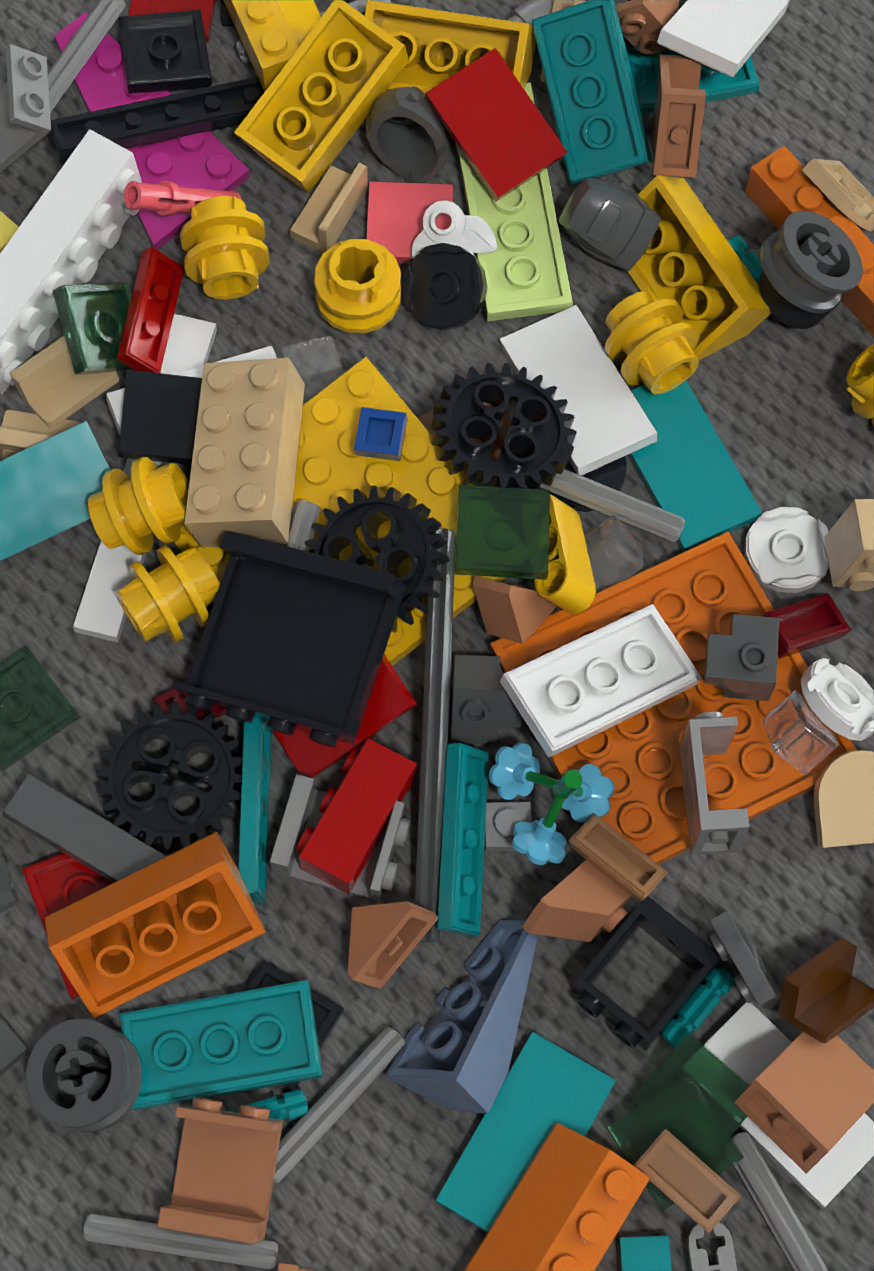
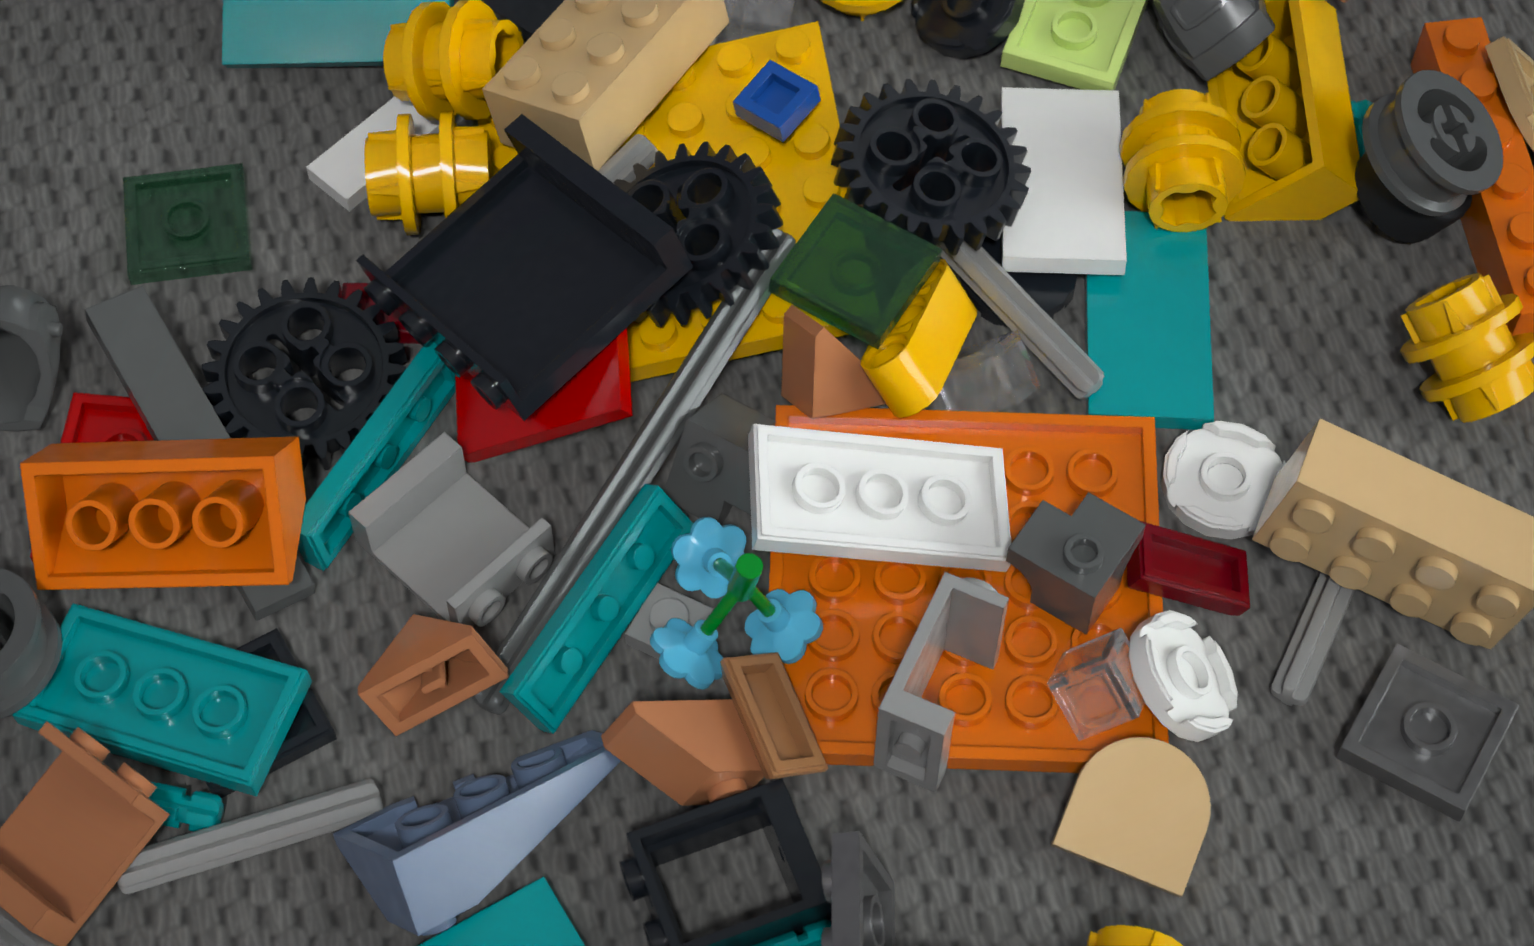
camera: 30 degrees right, 10 degrees down
(355, 815) = (483, 511): red brick -> none

